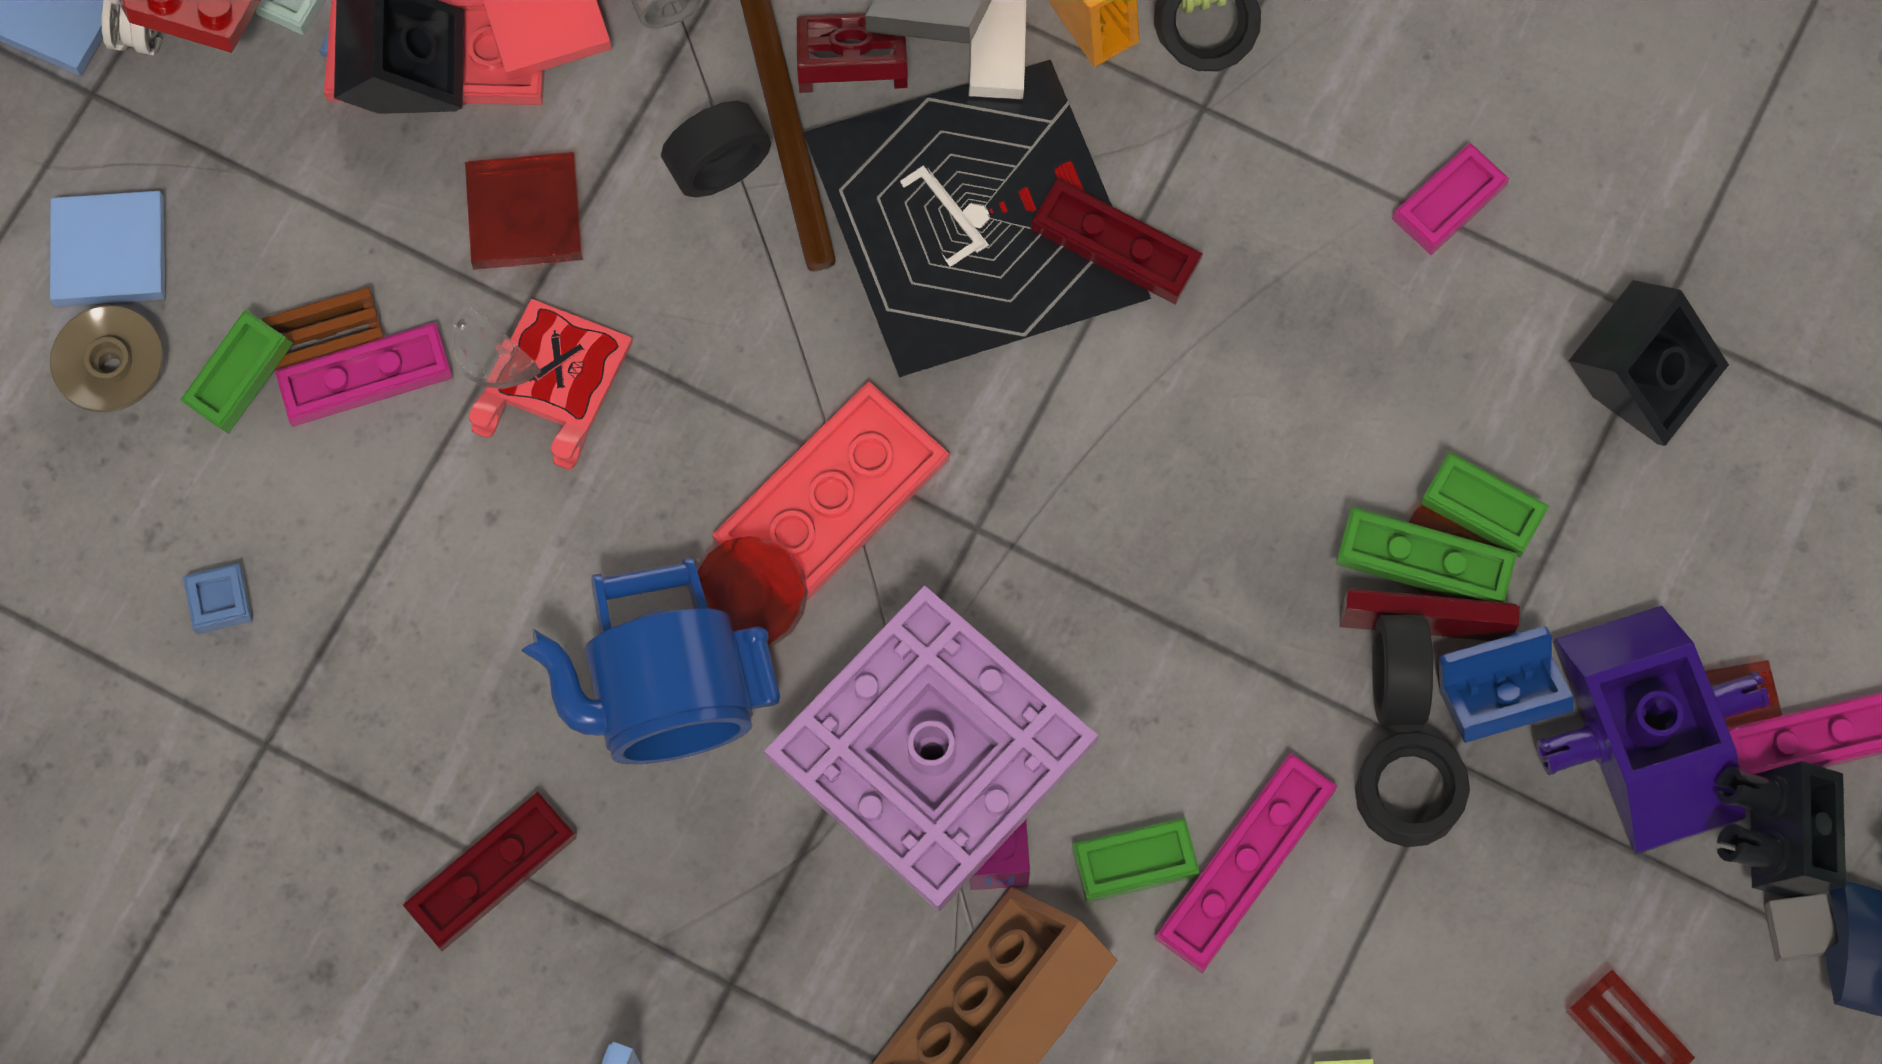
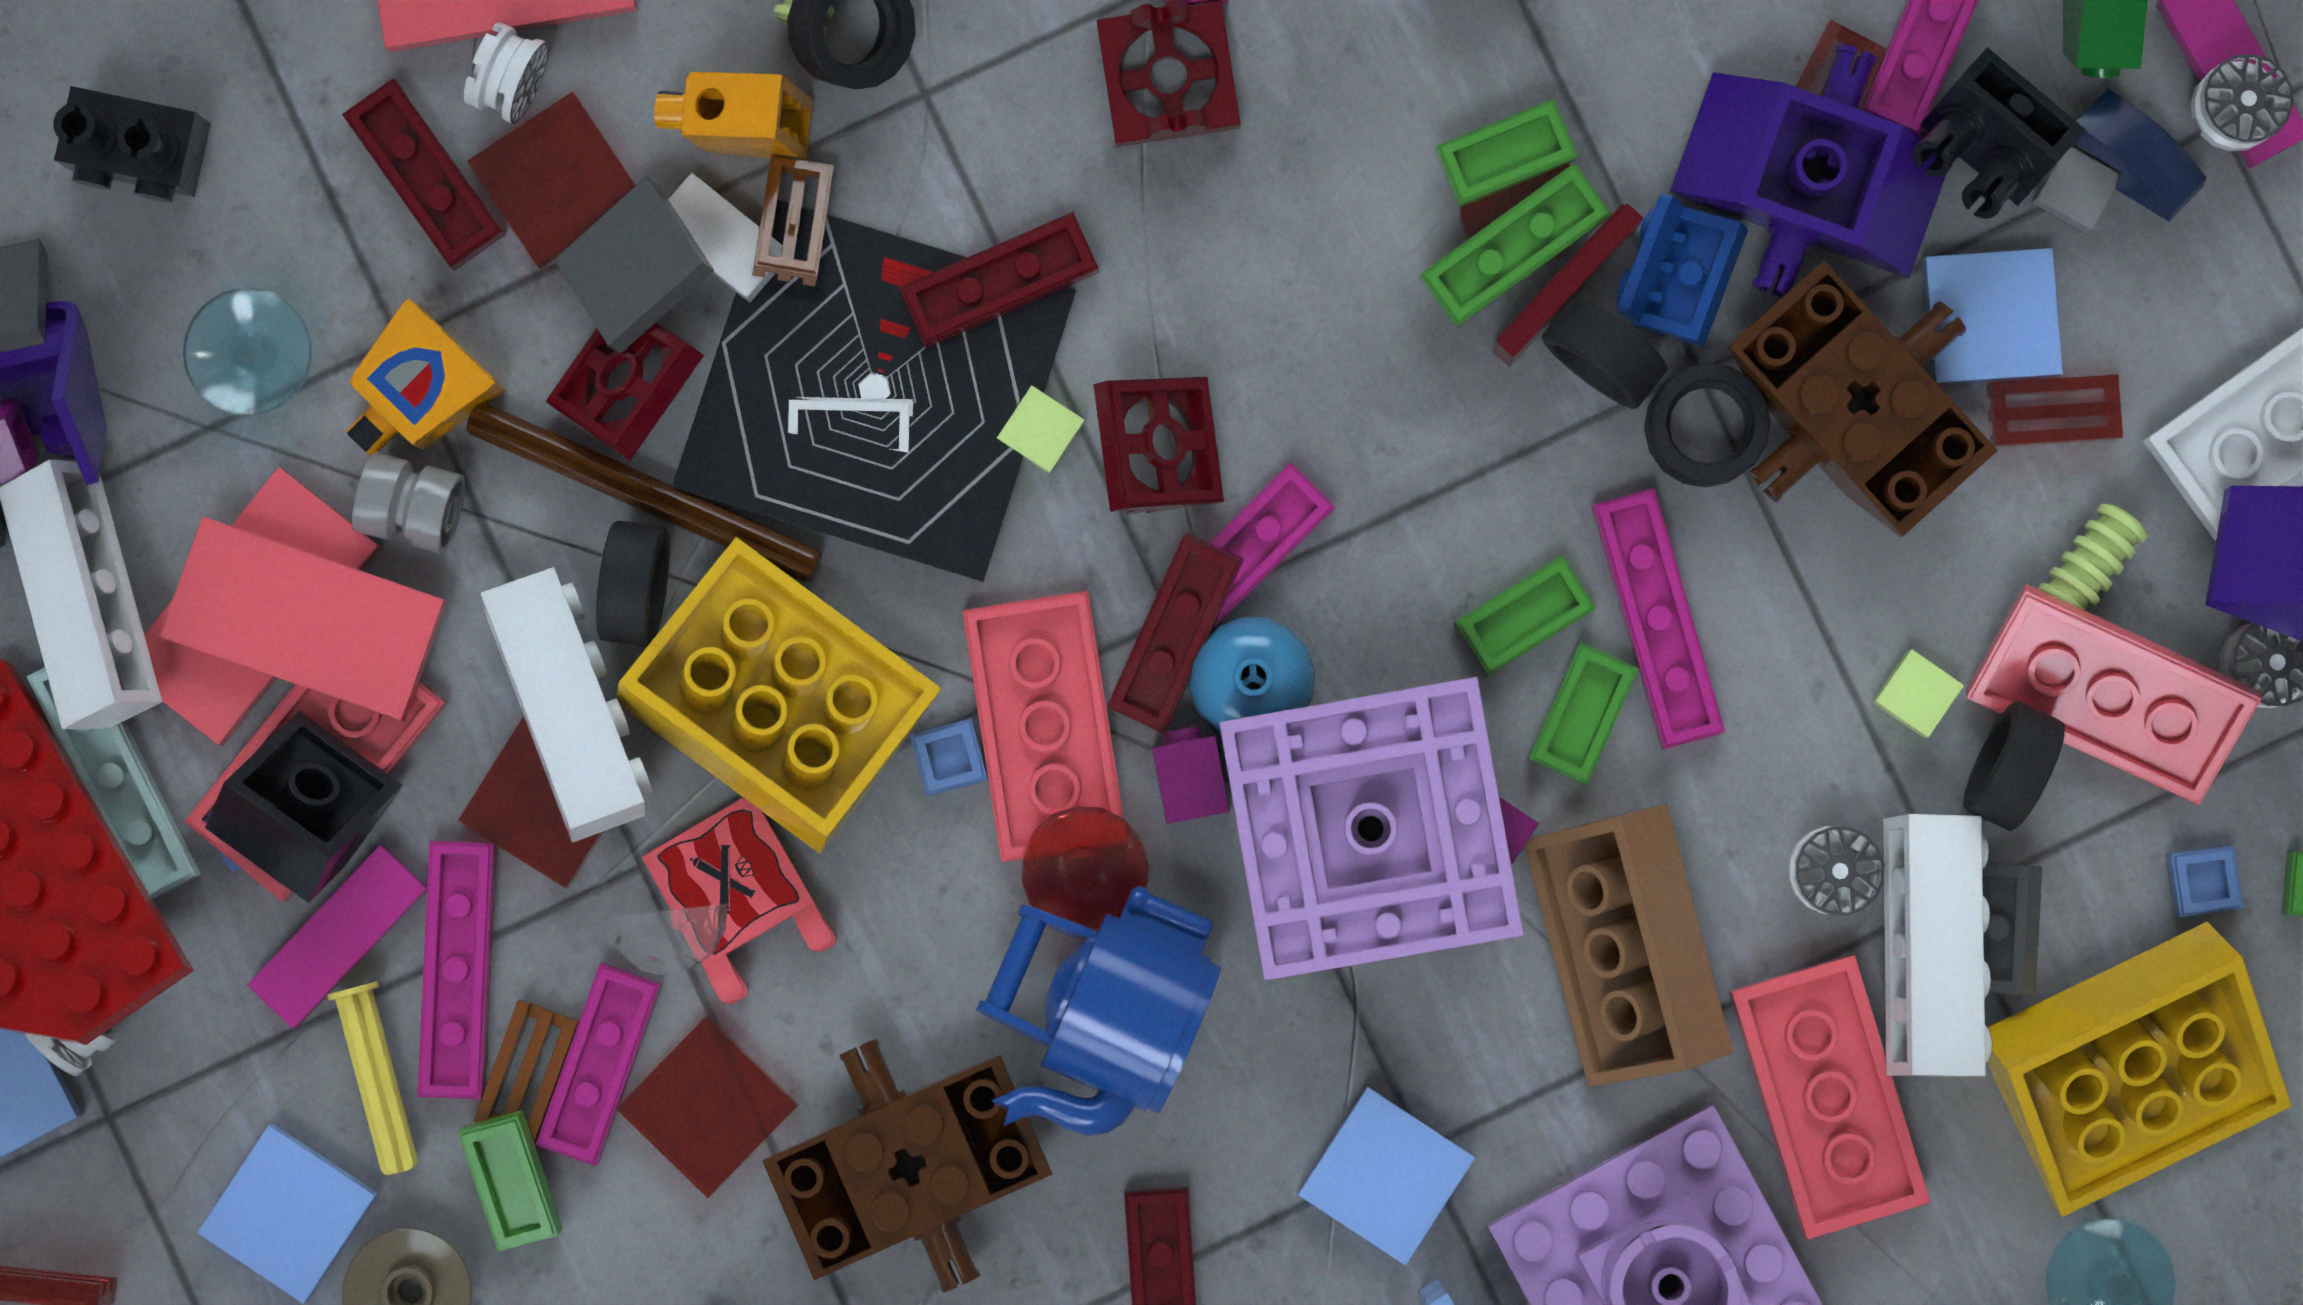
camera: 50 degrees left, 15 degrees up
(246, 235) = (376, 1078): none -> light yellow axle
(326, 146) = (338, 936): none -> dark pink tile
(361, 236) = (457, 970): none -> dark pink tile
(387, 466) = (707, 1106): none -> clear red tile
(399, 592) = (844, 1184): none -> reddish brown slope
(596, 163) = (564, 704): none -> white brick
(690, 970) = (1386, 1175): none -> light blue tile
(712, 298) = (776, 694): none -> yellow slope
(758, 448) = (949, 757): none -> medium blue tile
(867, 609) = (1190, 776): none -> magenta brick
(966, 530) = (1175, 632): none -> dark red tile
(1006, 602) = (1253, 643): none -> dark azure cylinder
(1014, 92) = (786, 264): none -> tile
(1036, 344) = (1041, 429): none -> yellowish green tile
(1061, 541) = (1270, 530): none -> dark pink tile
(1139, 420) = (1193, 403): none -> dark red piece
(1172, 766) = (1524, 615): none -> bright green tile
(1324, 280) = (1201, 20): none -> dark red piece
(1531, 821) = (1886, 460): none -> reddish brown slope
(1659, 936) = (2007, 314): none -> light blue tile

